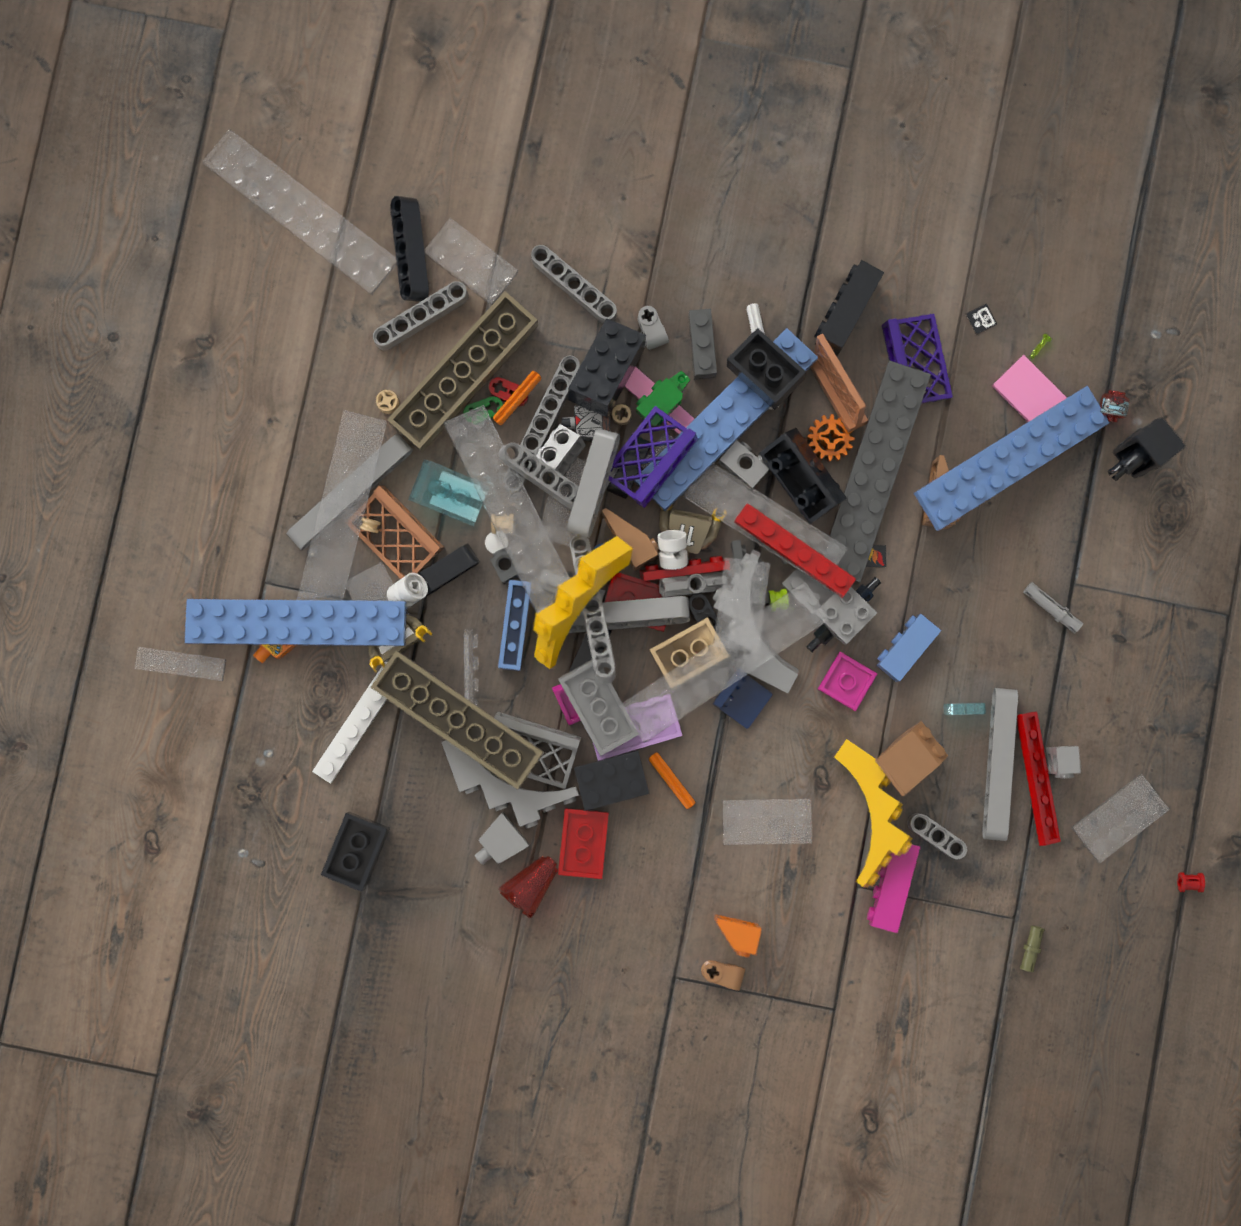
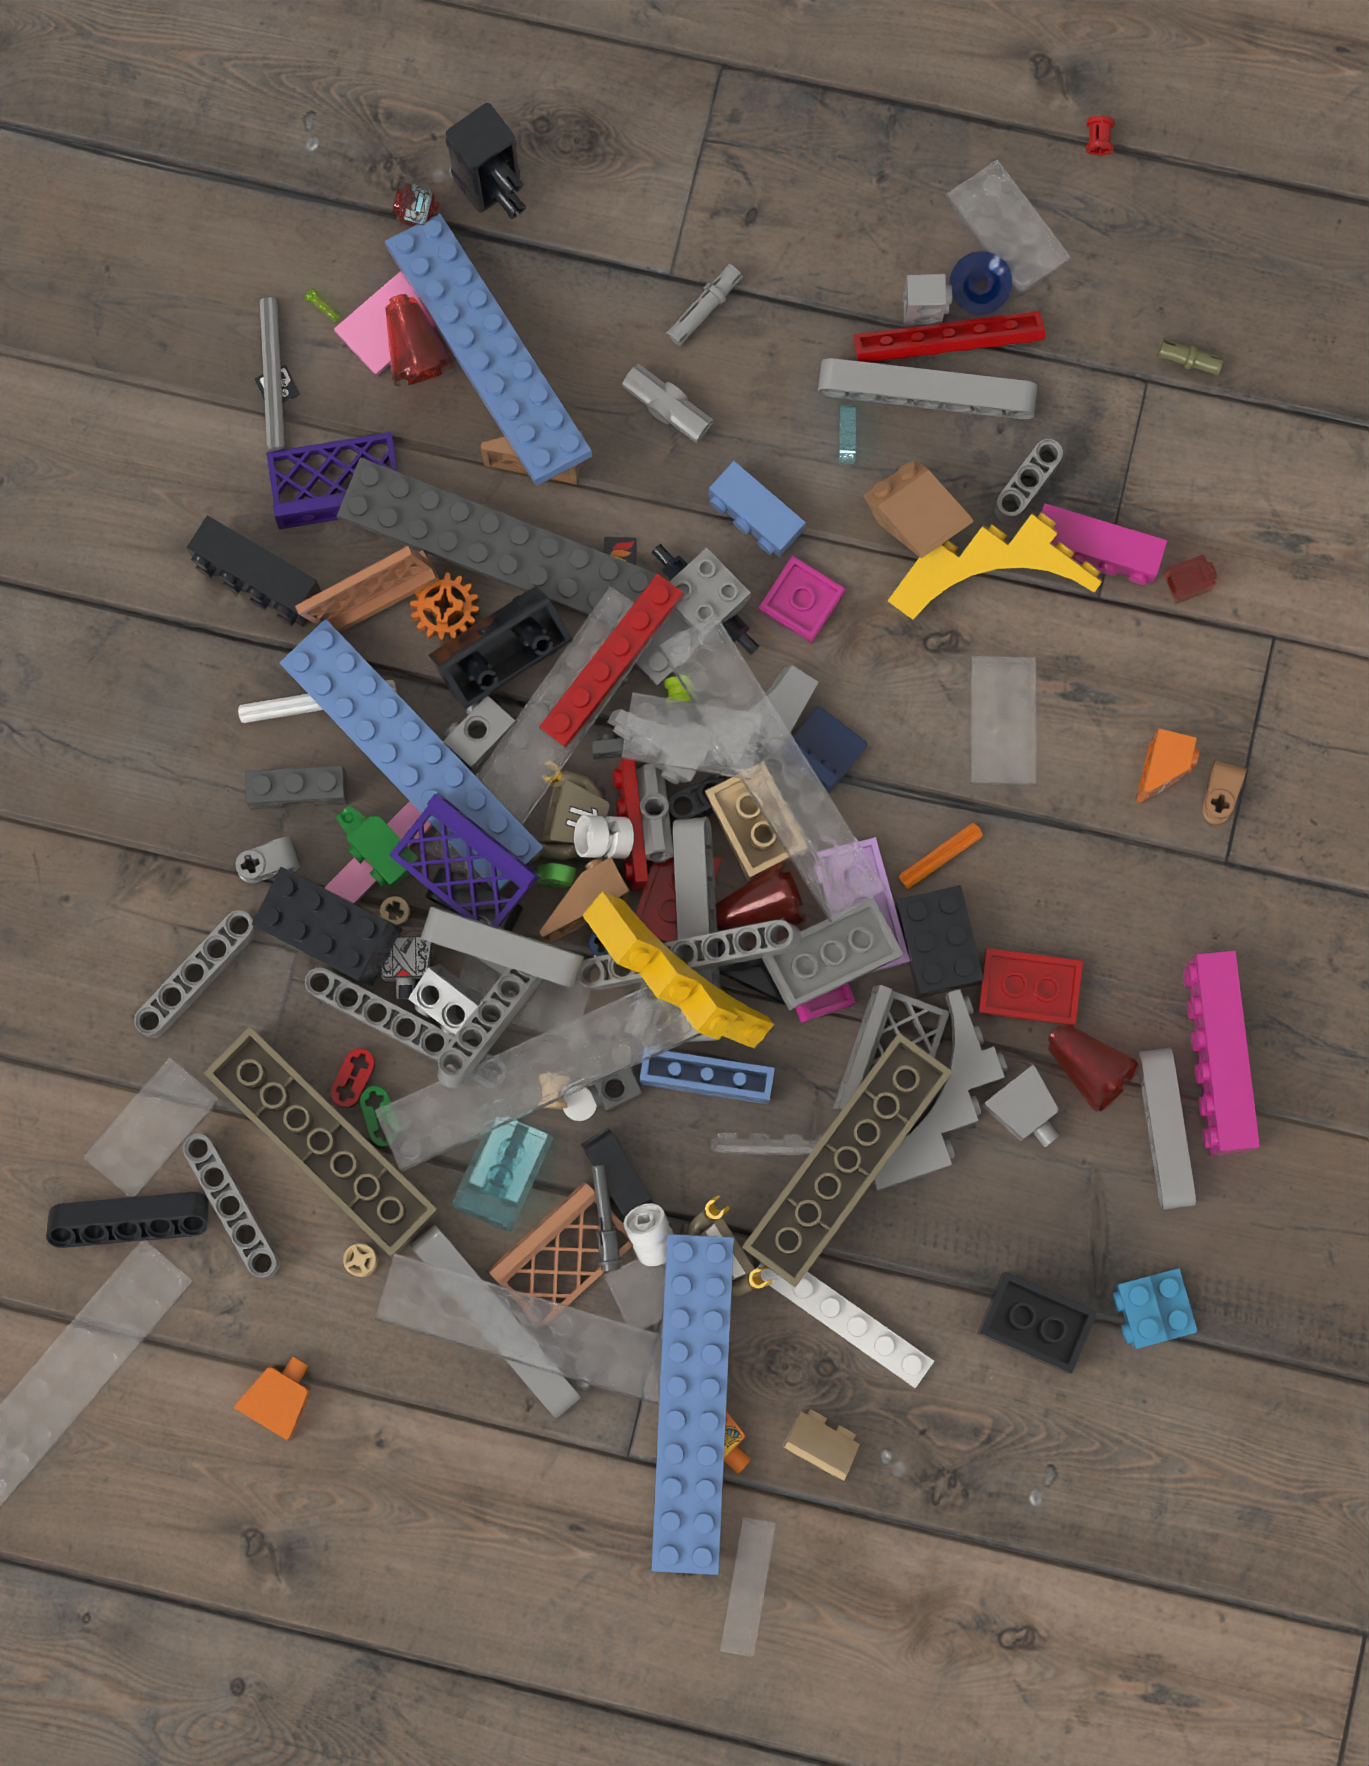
camera: 85 degrees left, 5 degrees down
(269, 708) = (822, 1445): none -> tan slope
(295, 352) = (277, 1399): none -> orange torso
(368, 931) = (1154, 1309): none -> dark azure plate
(370, 525) = (548, 1288): tan bush -> none
(404, 563) = (606, 1235): none -> dark grey pin
(489, 937) = (1166, 1128): none -> light grey beam
(517, 398) = (364, 1063): orange axle -> none
(539, 975) = (1221, 1053): none -> dark pink brick
(633, 660) = (761, 900): none -> clear red cone
(647, 519) = (556, 875): none -> bright green beam
(766, 368) = (342, 690): black brick -> none
(872, 950) = (1190, 578): none -> clear red brick
(981, 584) = (667, 403): none -> light grey piece
(990, 314) = (272, 373): none -> light grey axle
(1014, 407) = (413, 343): none -> clear red cone
(1086, 792) = (978, 267): none -> clear blue dish

